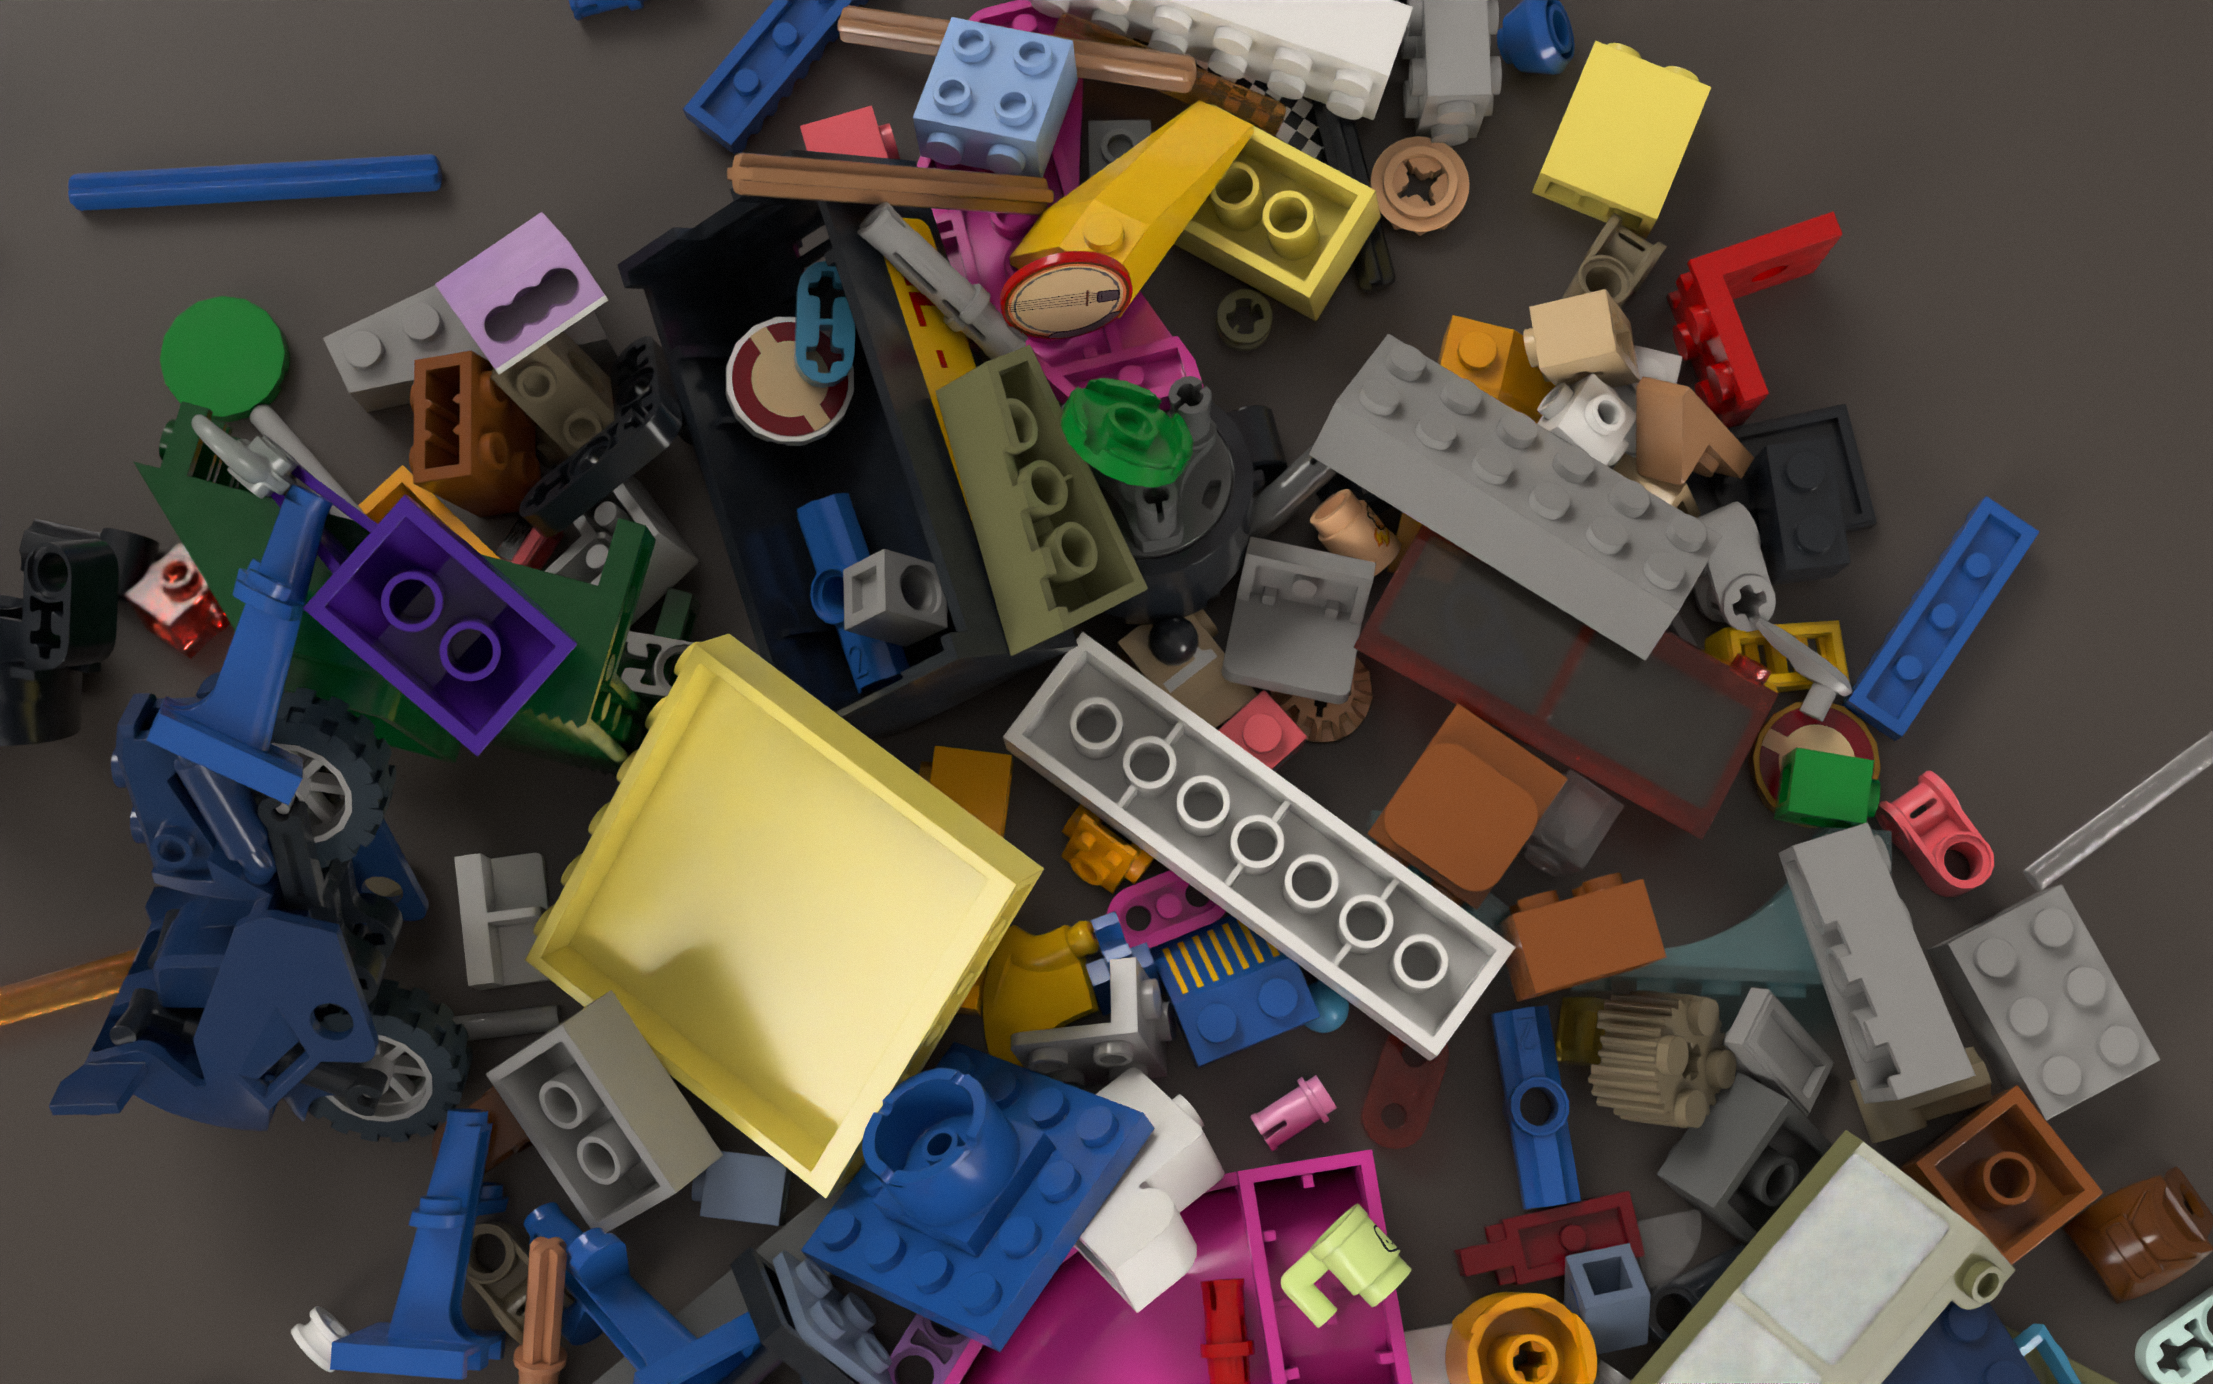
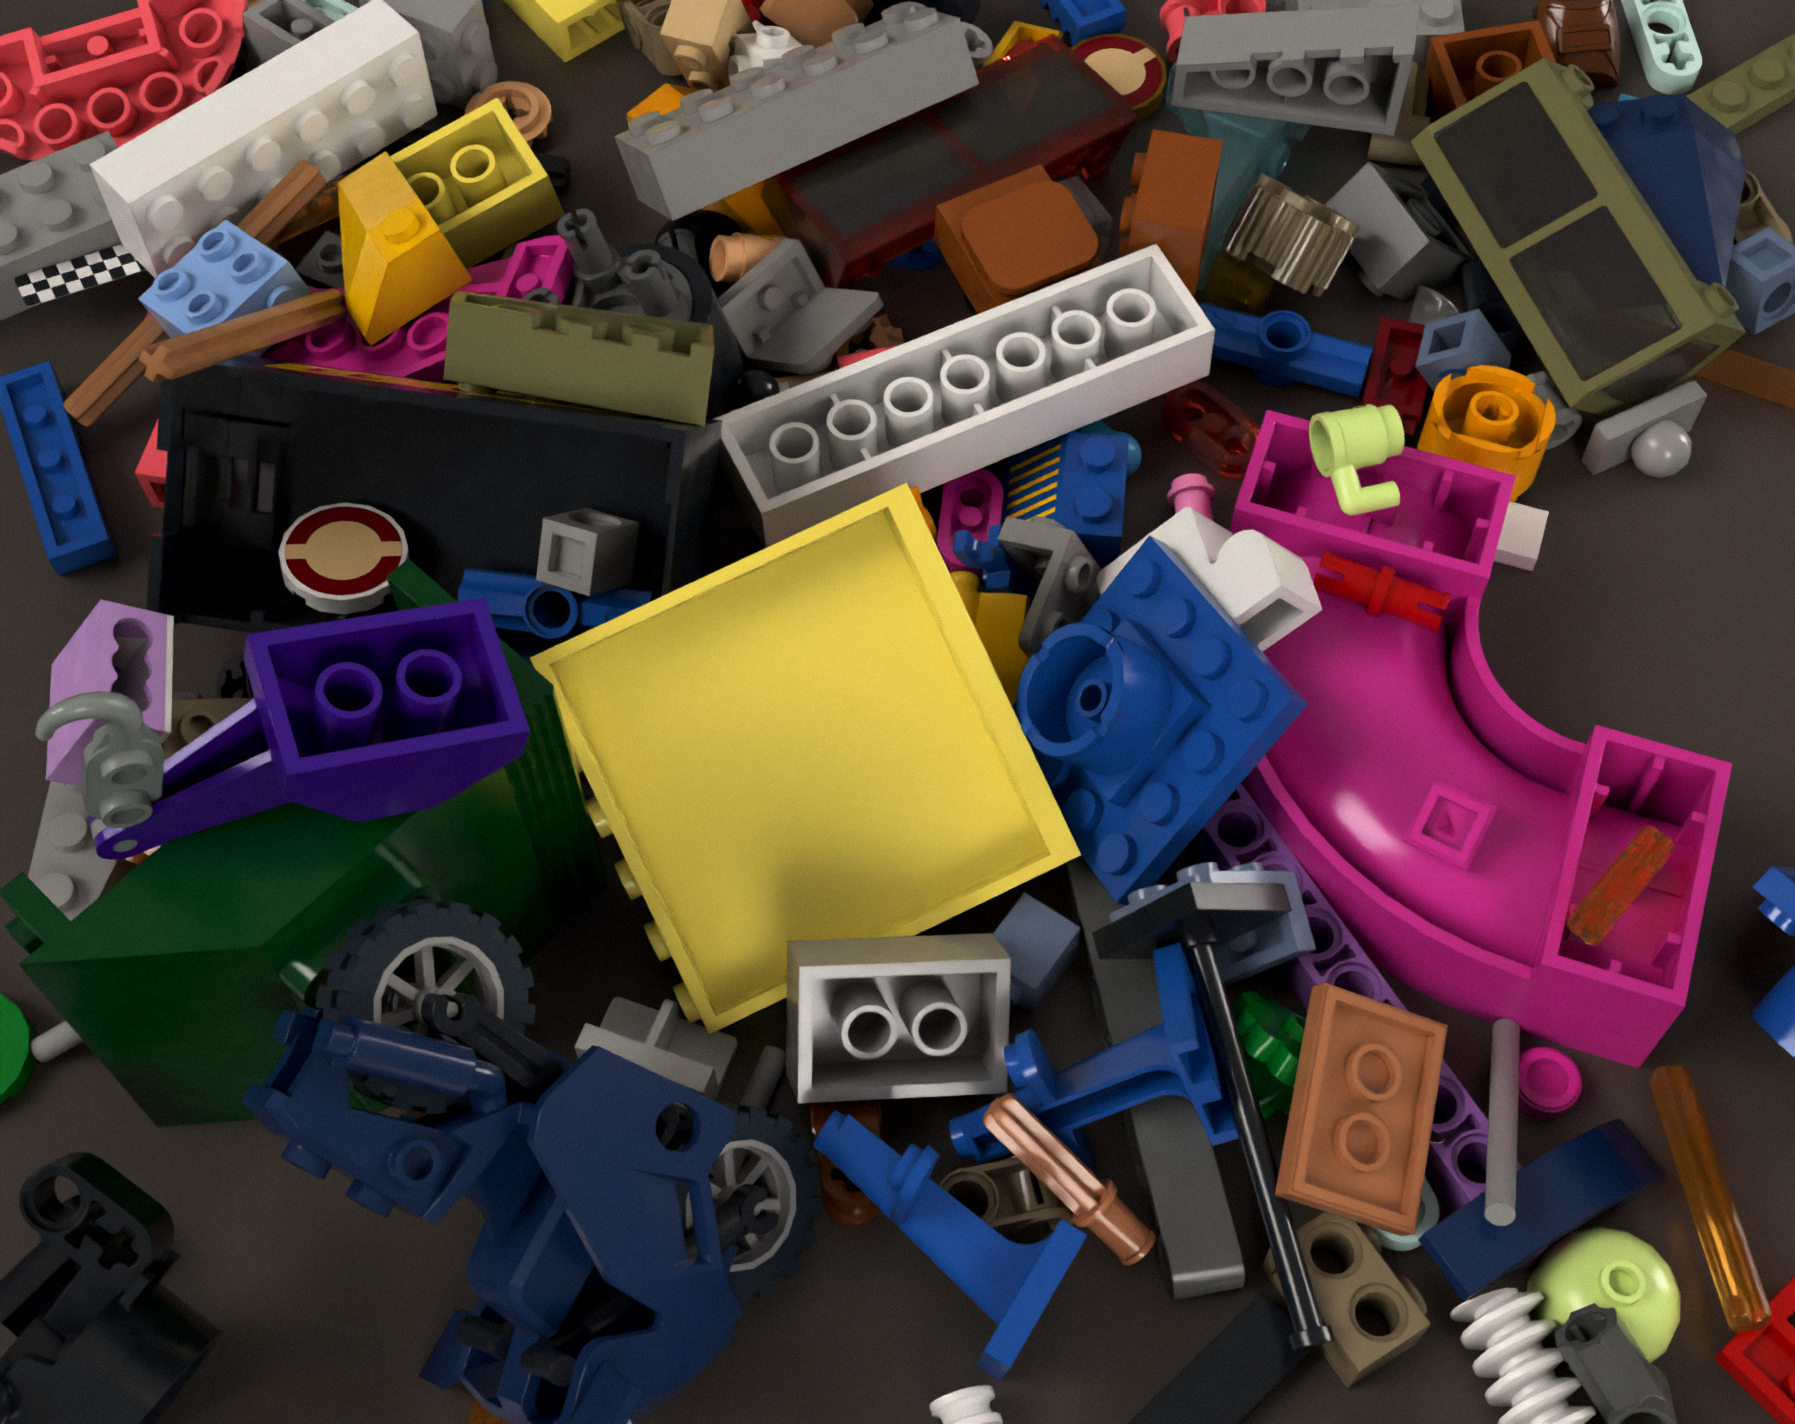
camera: 60 degrees left, 20 degrees down
(178, 603) = (175, 1174): clear red brick -> none
(236, 720) = (345, 943): blue piece -> none
(809, 323) = (322, 490): dark azure beam -> none
(963, 304) = (289, 346): light grey pin -> none
(1066, 295) = (426, 269): piece -> none
(1126, 433) = (576, 262): green tile -> none
(1777, 1050) = (1311, 170): light grey tile -> none
(1825, 677) = (1038, 31): light grey bar -> none
(1826, 789) = (1139, 60): green brick -> none

